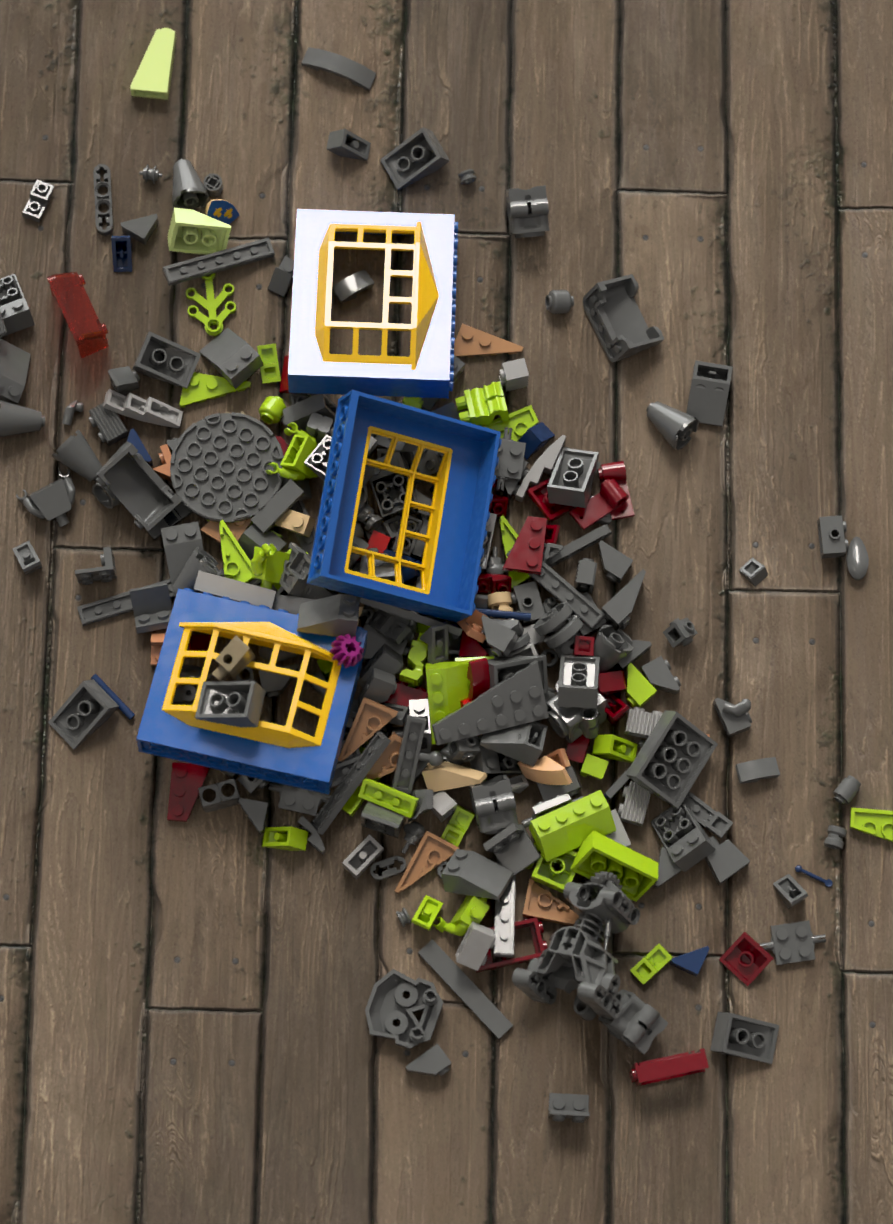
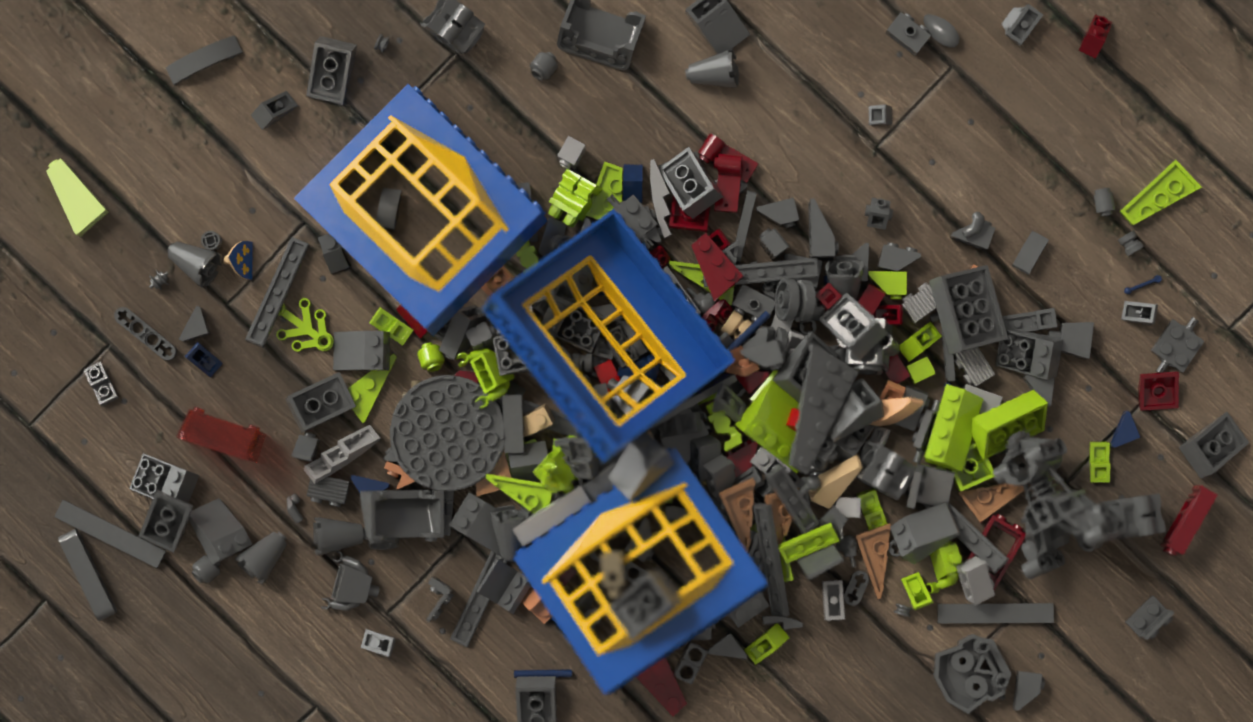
camera: 40 degrees left, 10 degrees up
(196, 233) = (240, 289): yellowish green slope -> none
(346, 650) = (681, 472): magenta gear -> none
(475, 342) = (517, 157): medium nougat wing -> none
(479, 677) = (784, 396): dark red slope -> none

